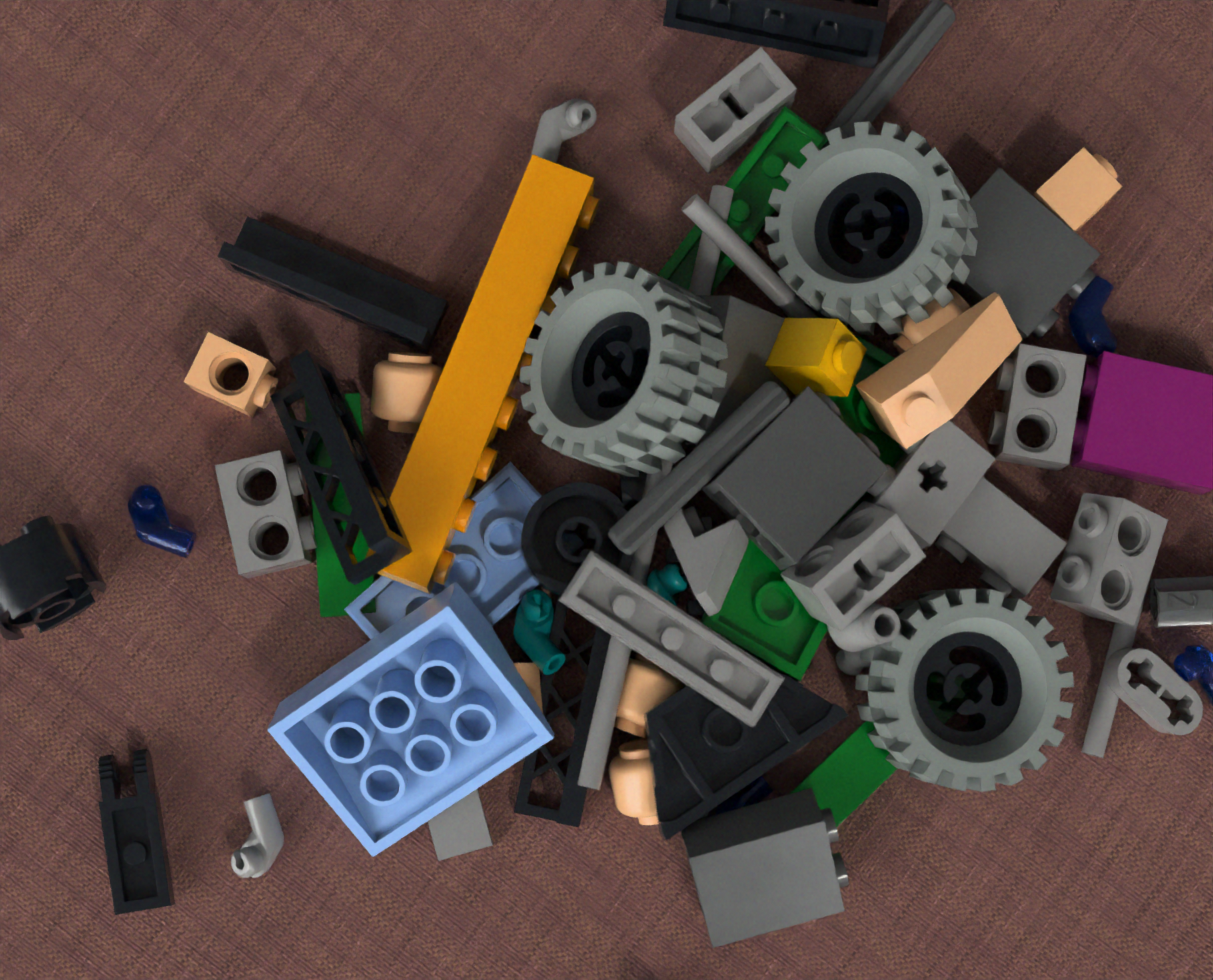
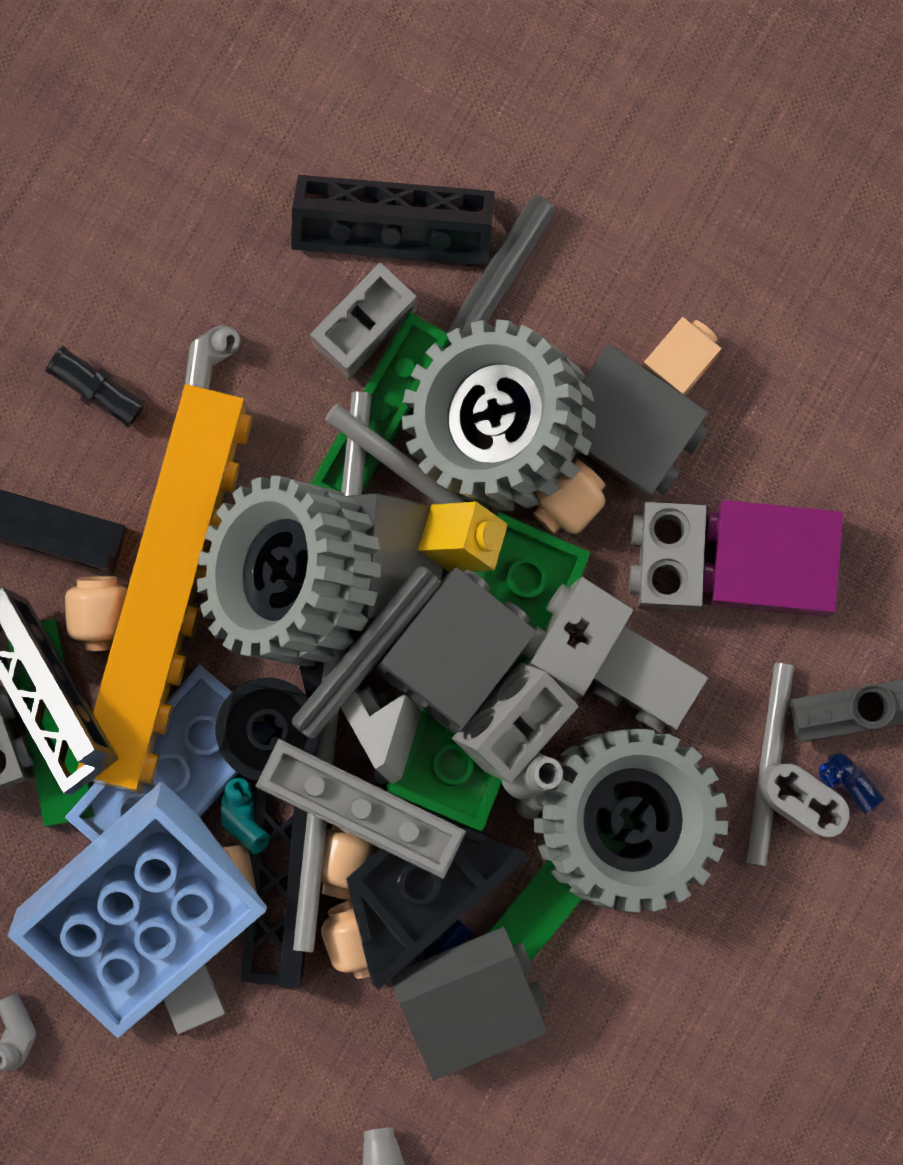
camera: 10 degrees left, 0 degrees up
(433, 147) = (95, 386): none -> black pin
(667, 582) = (352, 759): teal arm -> none
(940, 372) = (576, 537): light nougat slope -> none
(1088, 322) = (707, 473): clear blue arm -> none
(1109, 558) = (748, 686): light grey brick -> none

